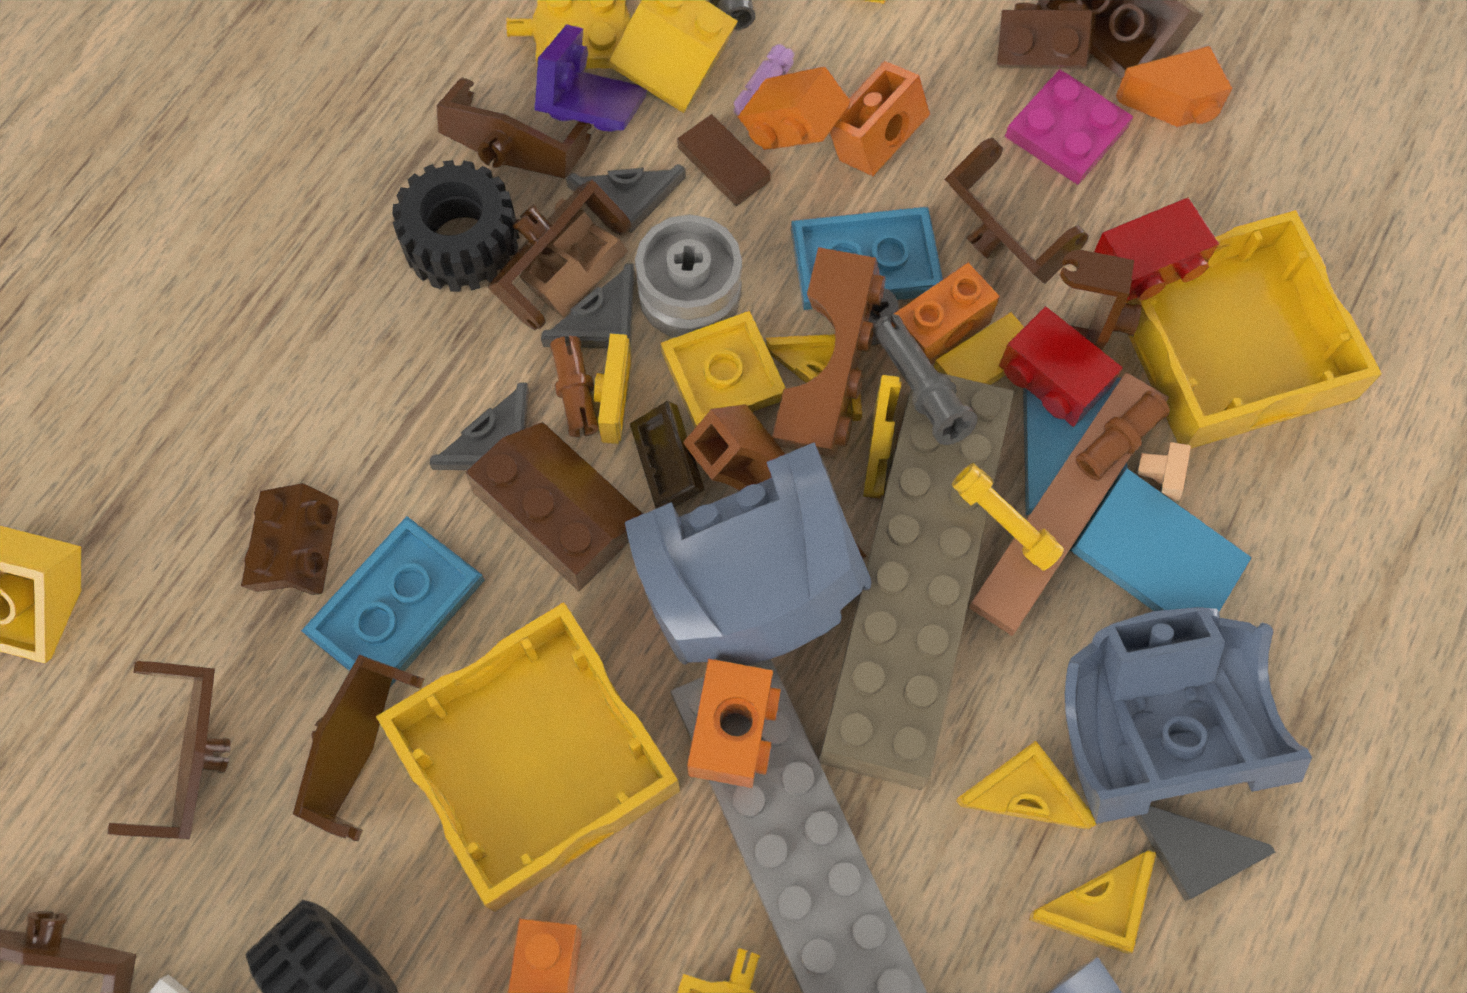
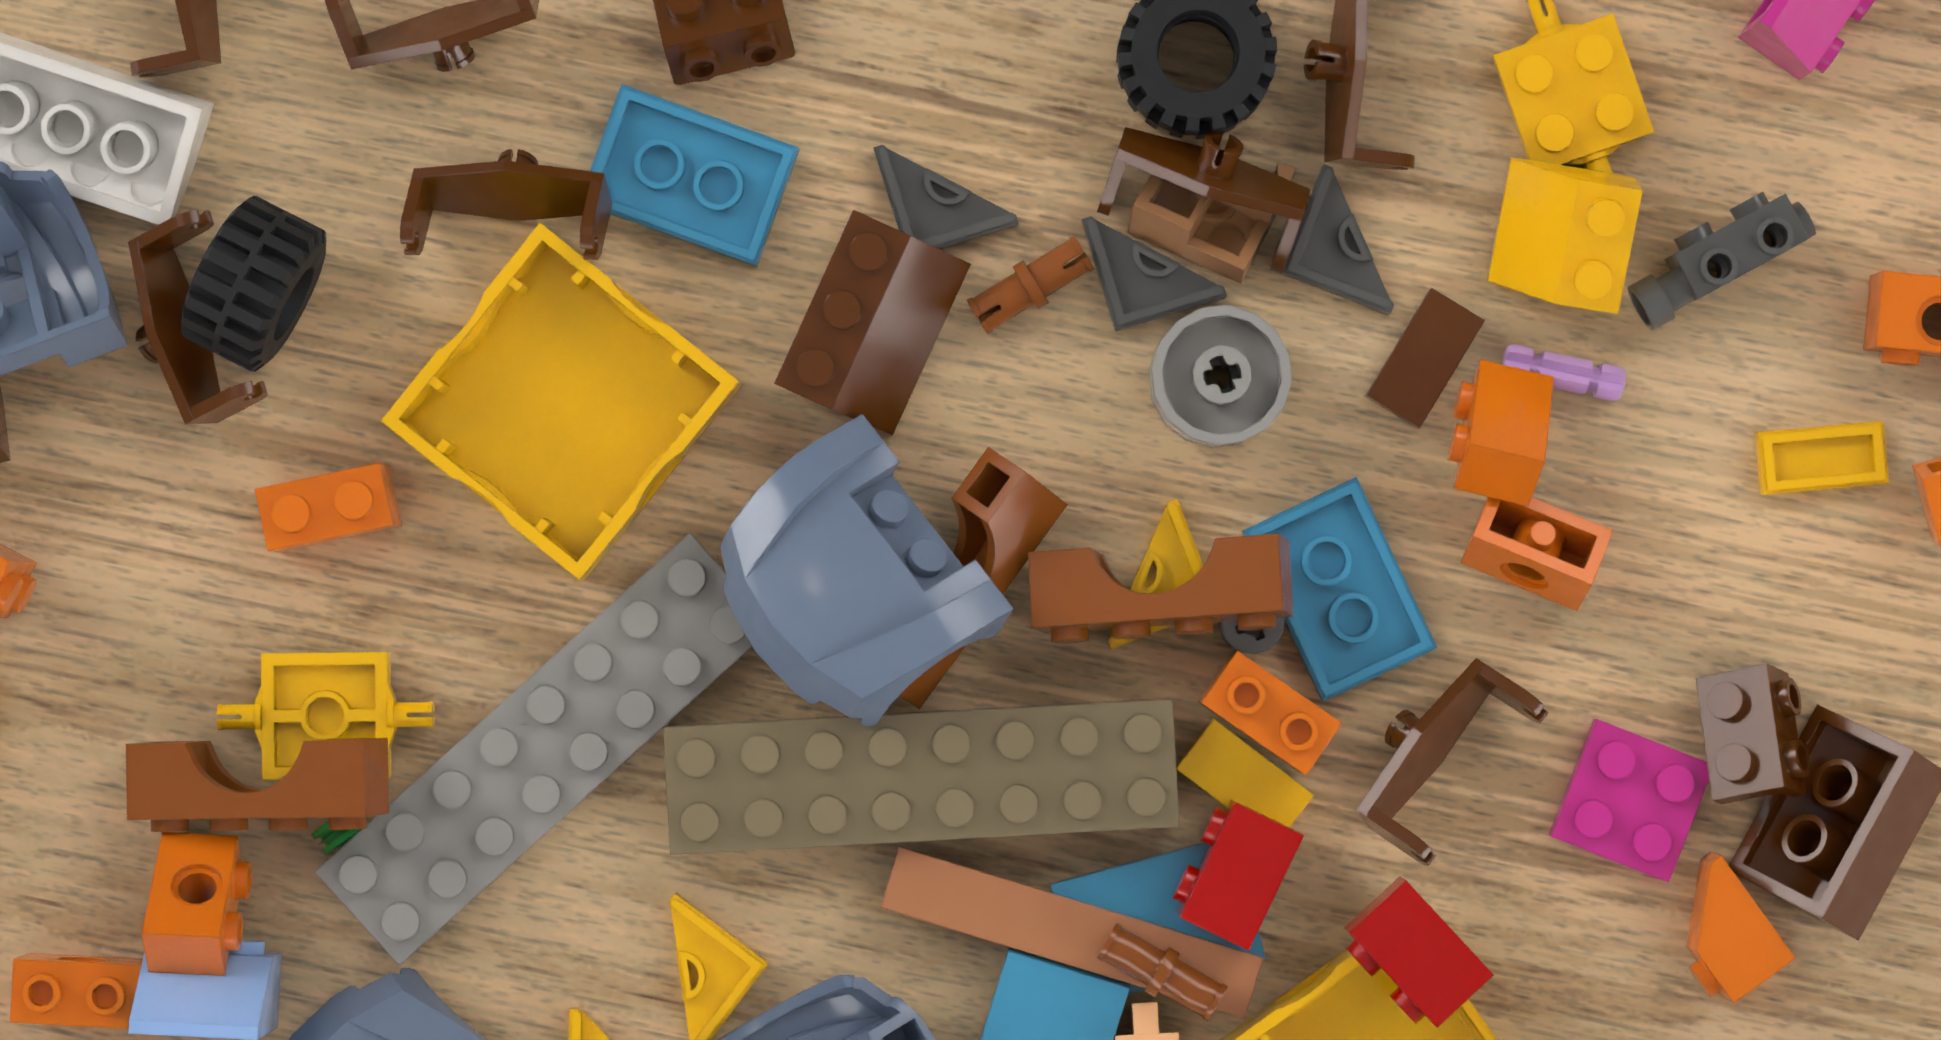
camera: 70 degrees right, 20 degrees up
(572, 94) = (1452, 149): dark purple bracket -> none
(612, 389) = (1039, 333): yellow plate -> none
(664, 457) = (960, 435): dark brown plate -> none
(723, 367) = (1111, 460): yellow plate -> none
(726, 691) = (622, 613): orange brick -> none
(881, 436) = (1072, 683): yellow tile -> none
(932, 392) = (1125, 729): dark grey pin -> none
(1038, 546) = (1021, 813): yellow bar -> none
(1108, 277) = (1312, 896): reddish brown piece -> none

